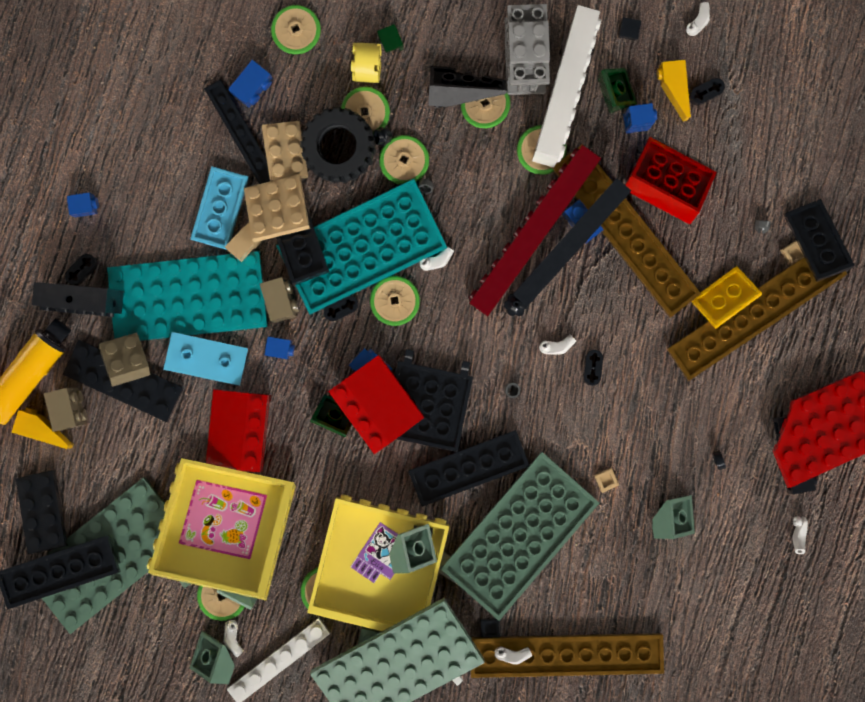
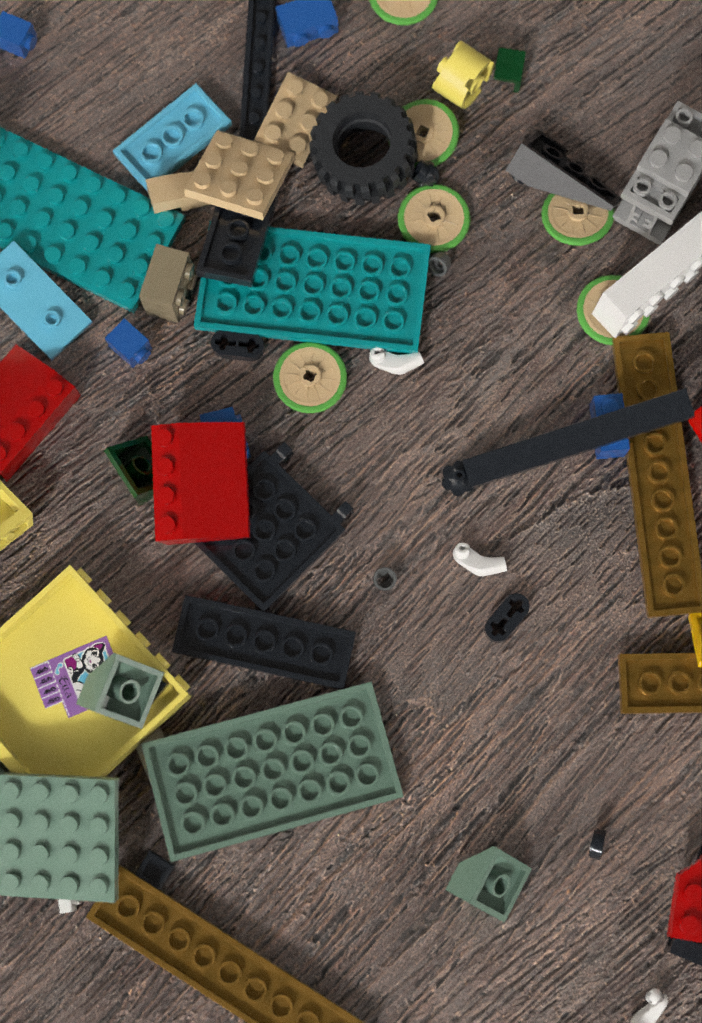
camera: 40 degrees right, 10 degrees down
(512, 657) = (156, 923): white arm -> none
(535, 230) = (540, 398): dark red brick -> none
(606, 480) = (432, 774): tan tile -> none

